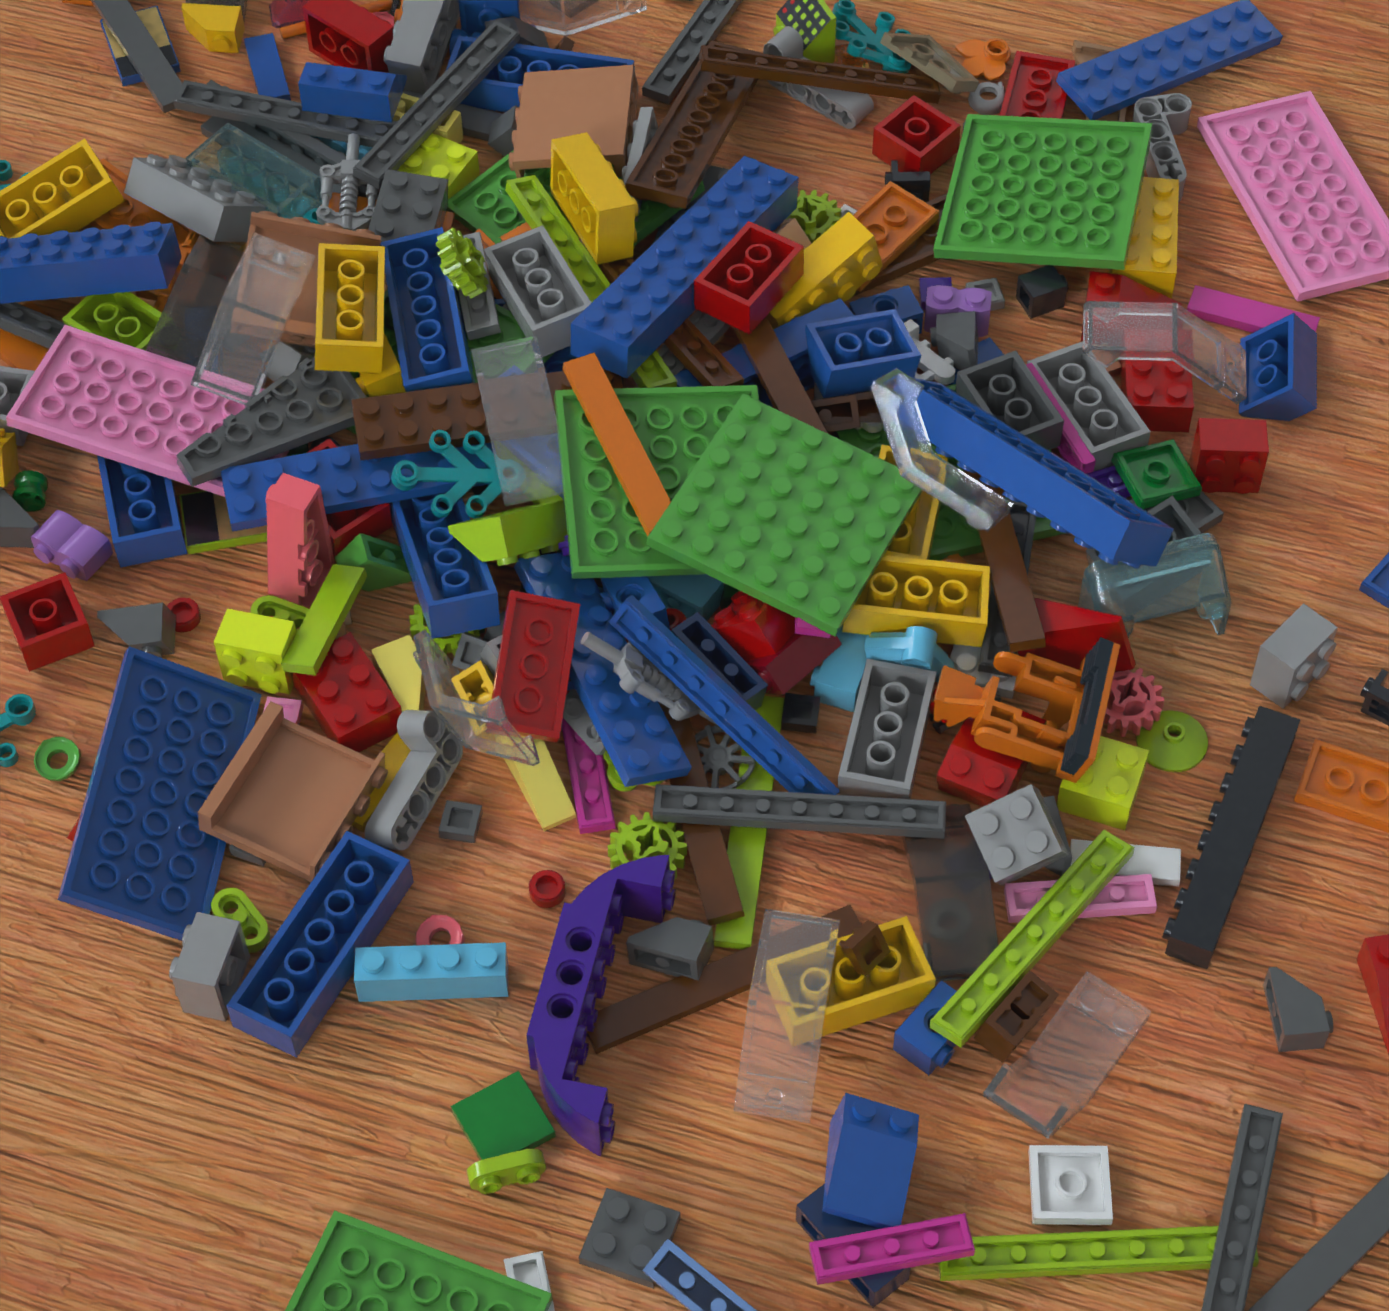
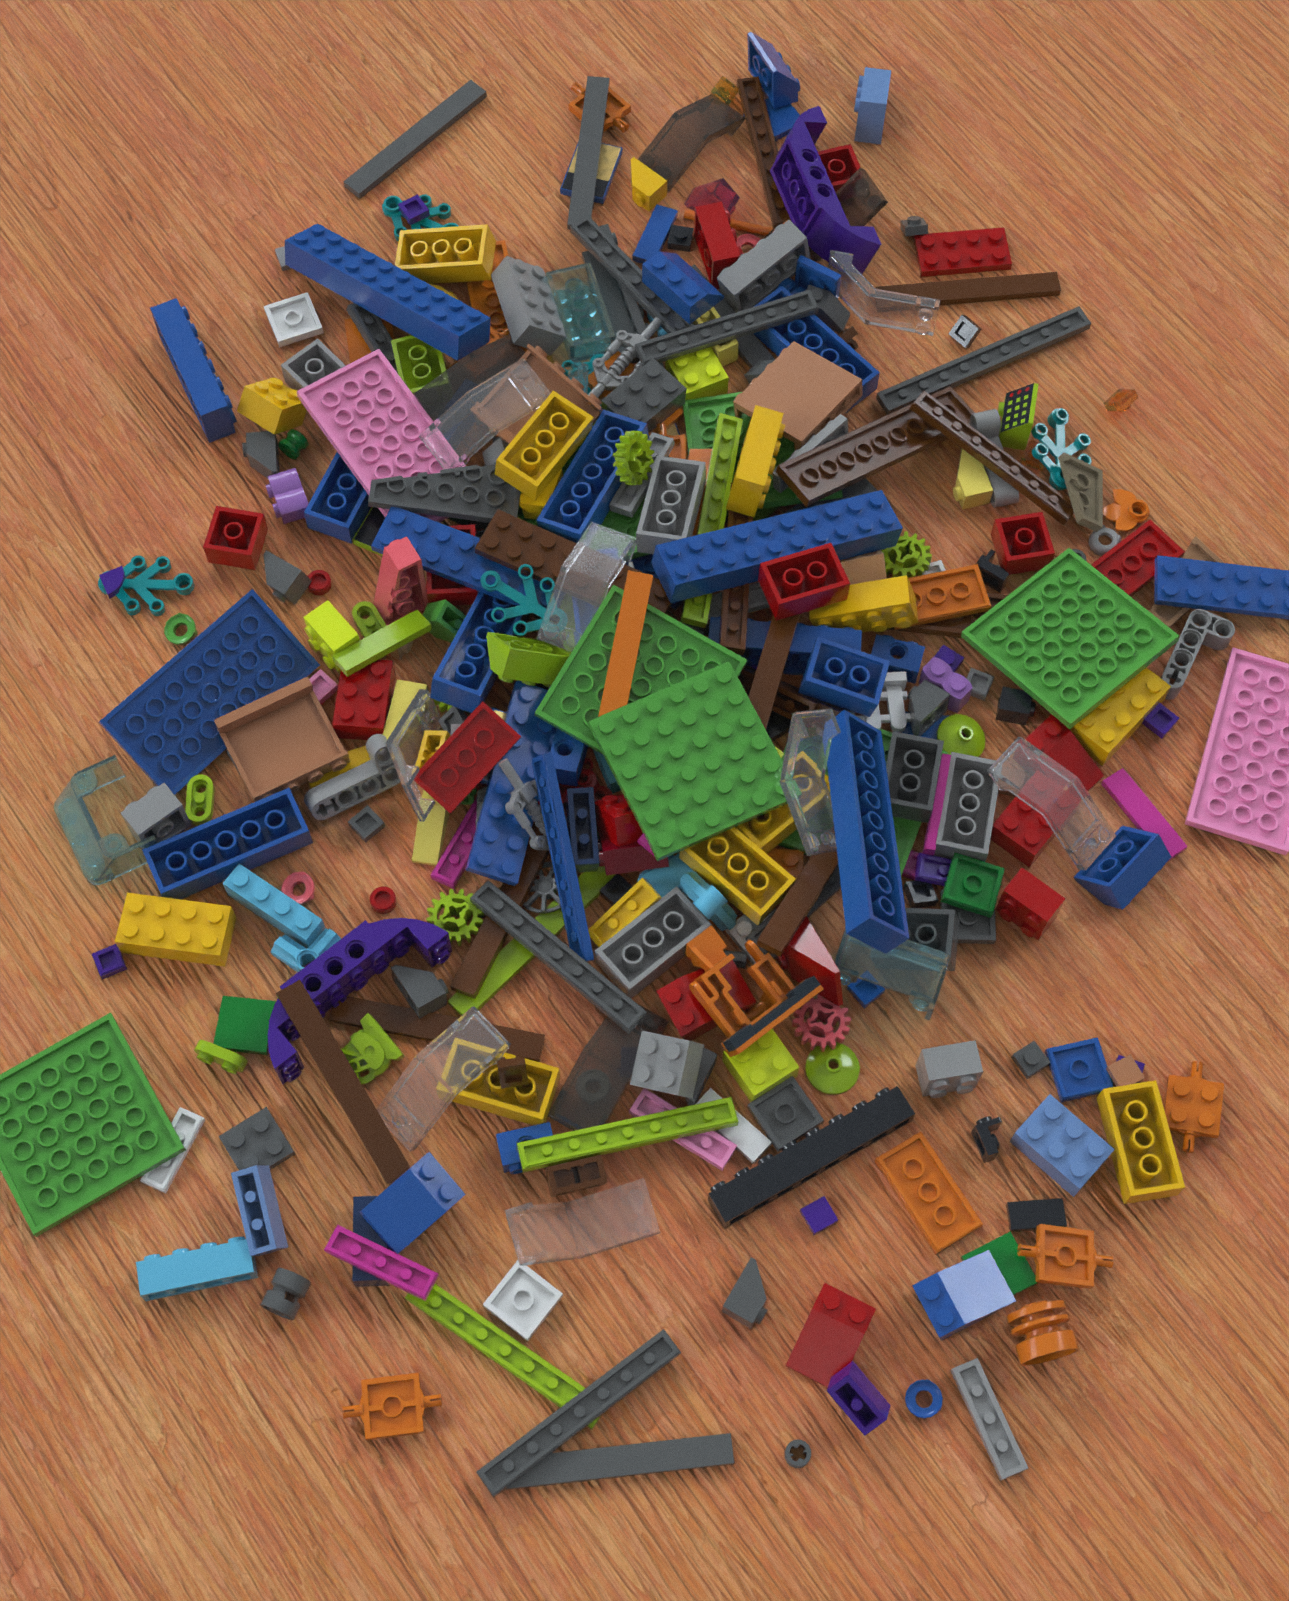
camera: 35 degrees right, 10 degrees up
(136, 1044) = (97, 856): none -> clear light blue windscreen
(278, 1163) = (109, 961): none -> dark purple tile
(295, 57) = (680, 238): none -> black plate
(334, 1071) = (175, 929): none -> yellow brick
(504, 1006) = (298, 956): none -> medium azure piece
(672, 1047) = (371, 1050): none -> lime piece
(681, 1090) = (343, 1081): none -> reddish brown tile
(807, 111) = (972, 482): none -> light yellow slope
(833, 722) = (624, 911): none -> yellow plate
(1009, 340) = (951, 731): none -> lime dish
(1144, 641) = (865, 992): none -> blue plate
(1169, 812) = (785, 1113): none -> dark grey plate
(1192, 222) = (1160, 720): none -> dark purple plate
(1290, 888) = (819, 1215): none -> dark purple tile
(1355, 604) = (1030, 1059): none -> dark grey plate

